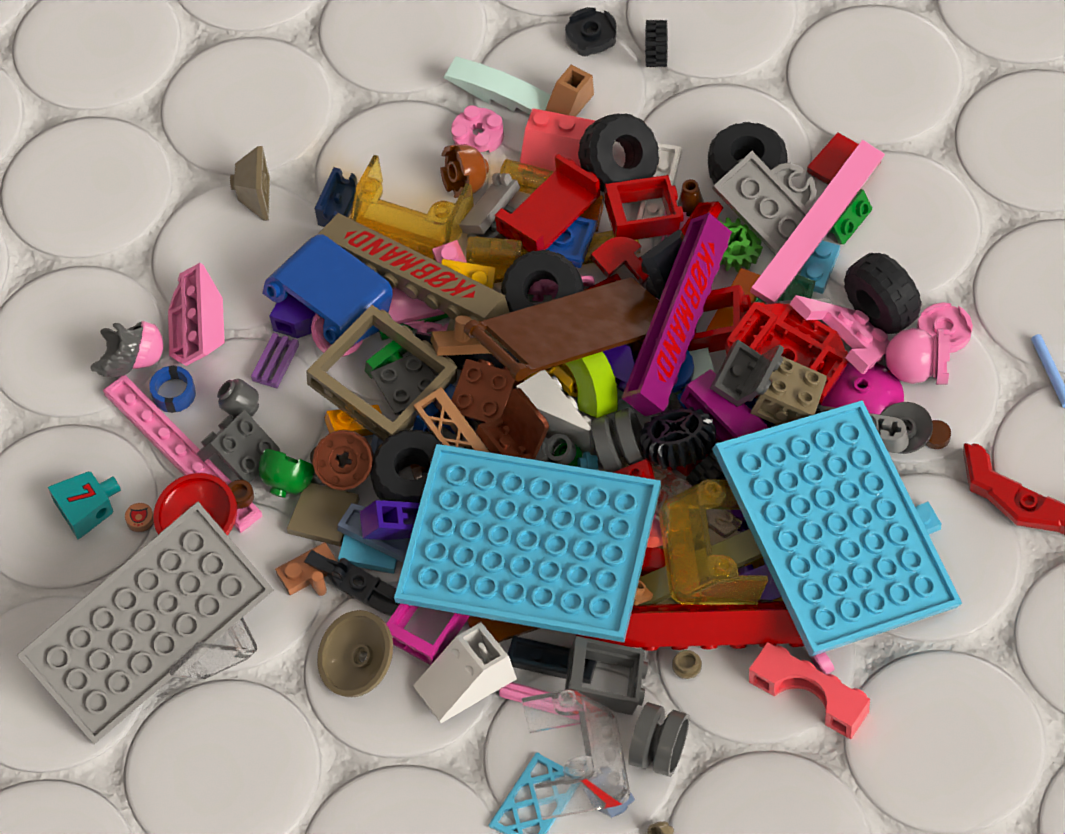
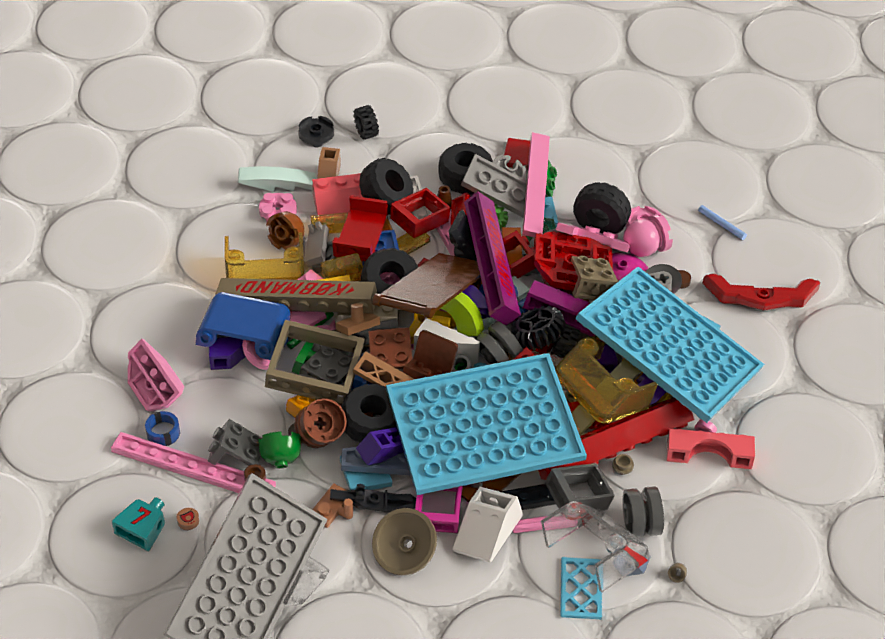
camera: 35 degrees left, 10 degrees down
(129, 349) = (117, 413): dark grey hair -> none
(185, 491) = (221, 491): red dish -> none
(238, 396) = (216, 414): dark grey head -> none
(253, 182) = (145, 283): dark tan slope -> none
(266, 355) = (224, 373): medium lavender tile -> none
(319, 513) = (320, 467): dark tan tile -> none
(335, 197) = (209, 275): dark blue hinge -> none
(619, 252) = (423, 242): red brick -> none
(746, 373) = (564, 274): dark grey bracket -> none

